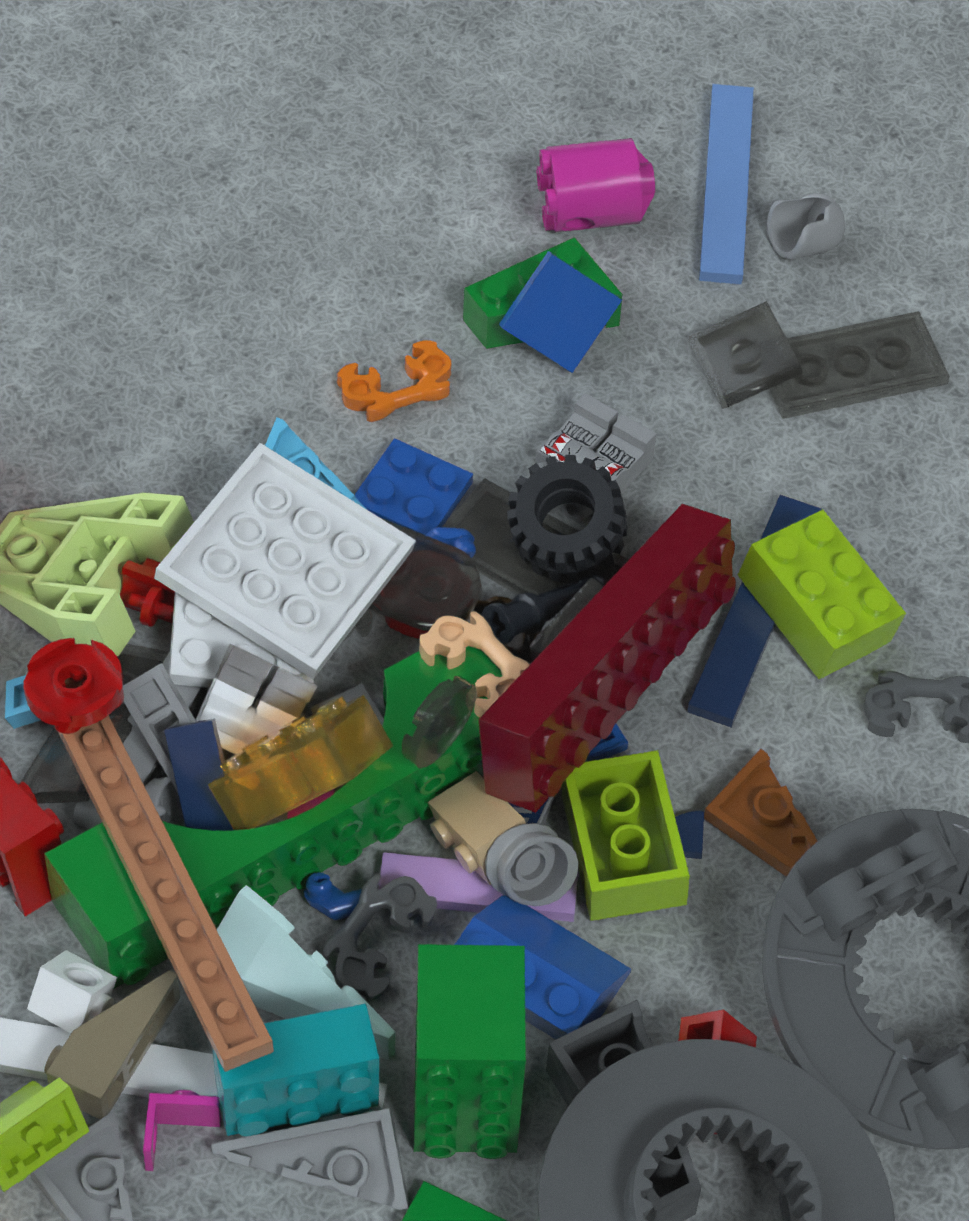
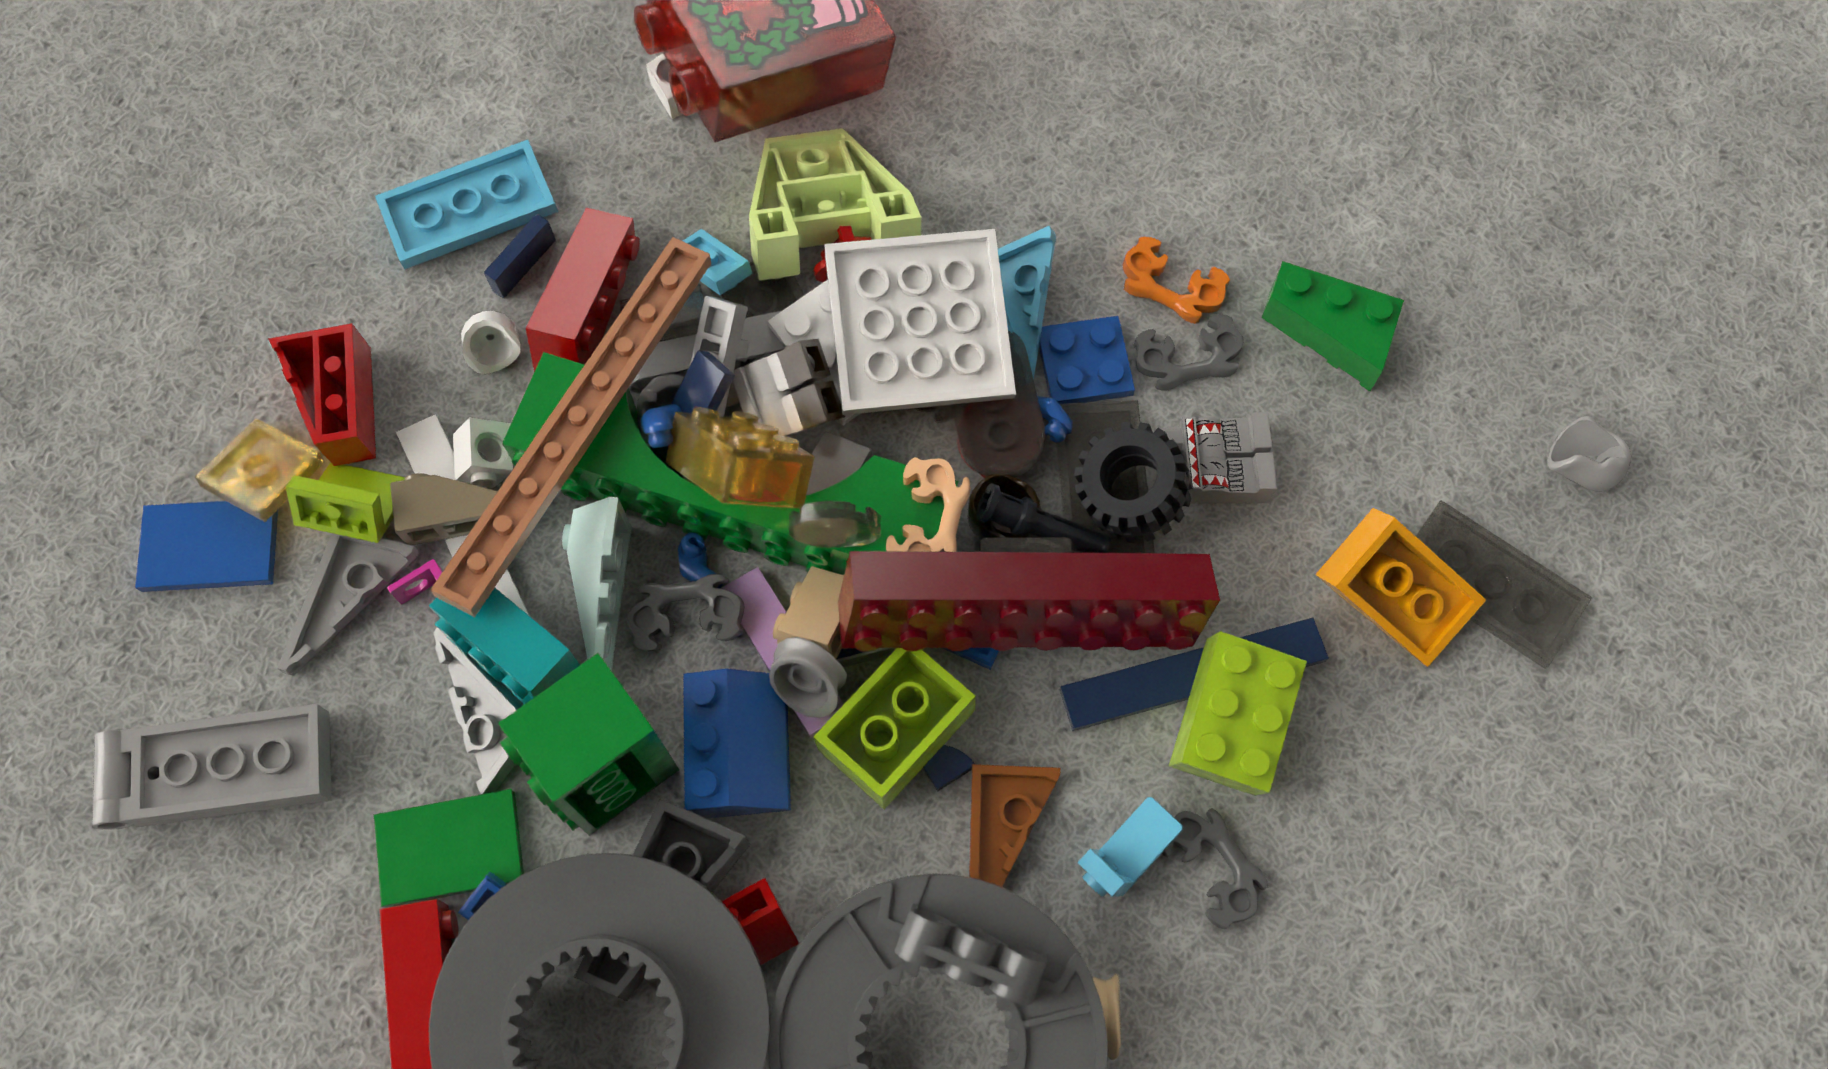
camera: 55 degrees right, 15 degrees up
(80, 706) = (678, 286): red plate -> none
(199, 809) = (658, 423): none -> blue arm
(486, 388) = (1223, 343): none -> dark grey helmet
(560, 312) = (1323, 340): blue tile -> none
(594, 185) = (1472, 278): dark pink cylinder -> none
(726, 184) = (1579, 369): medium blue tile -> none
(745, 355) = (1424, 496): clear smoke tile -> none
(804, 416) = (1401, 586): none -> light orange slope
(870, 744) = (1130, 849): none -> medium azure bracket

